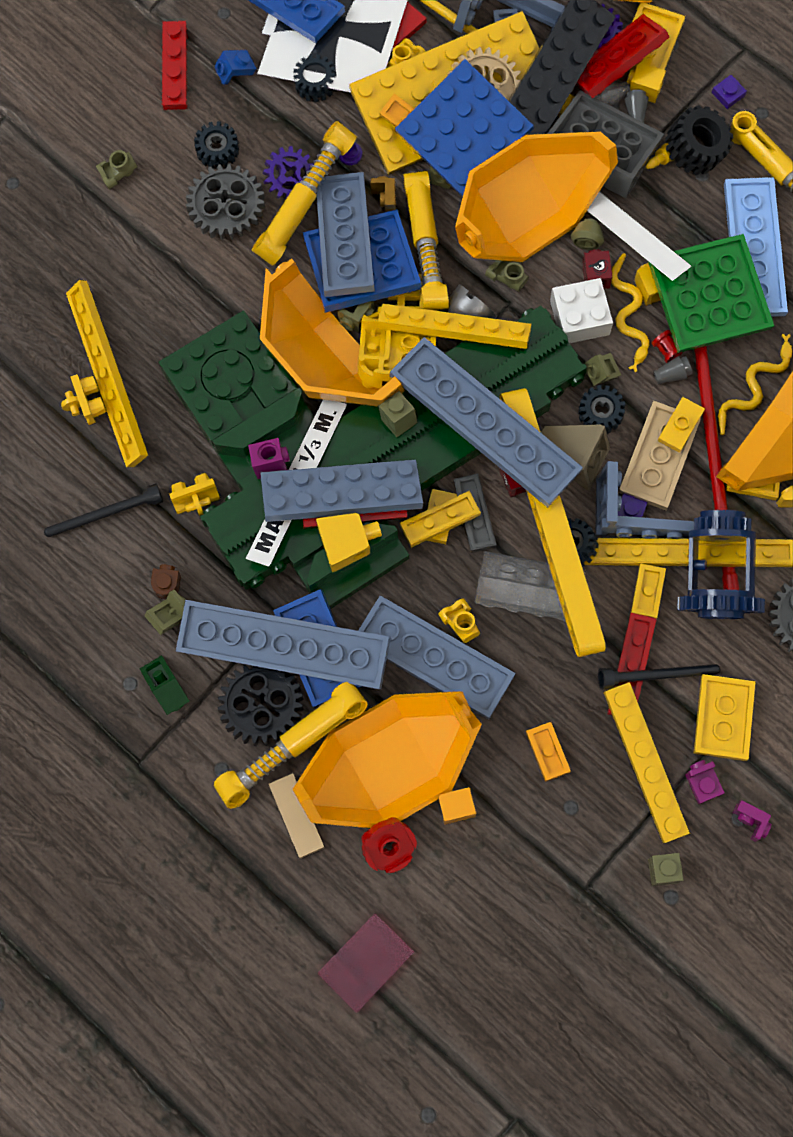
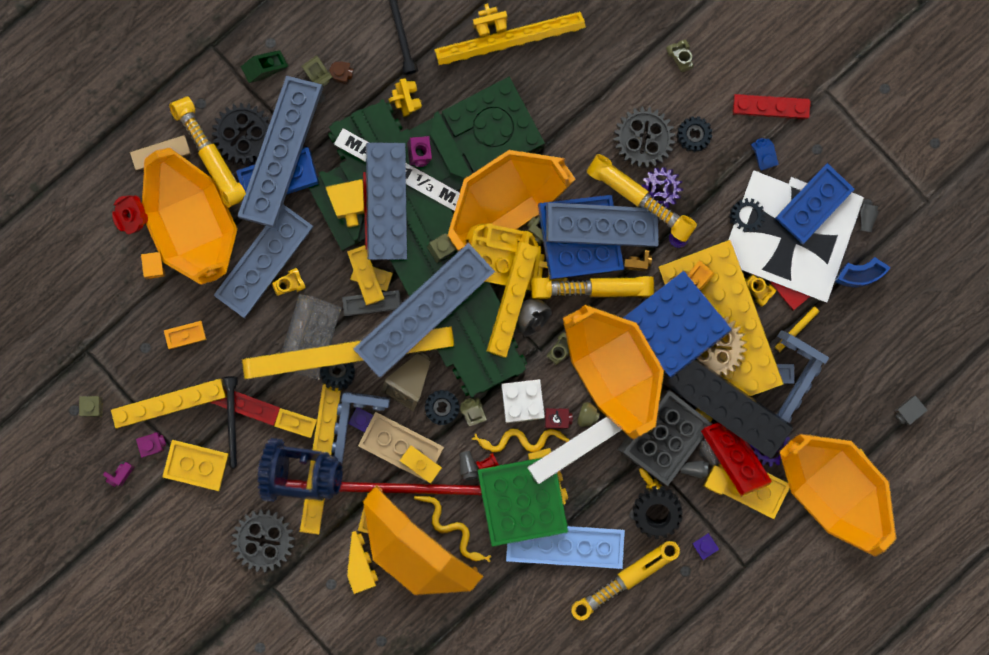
camera: 85 degrees right, 10 degrees up
(365, 963) = (53, 192): clear pink tile -> none

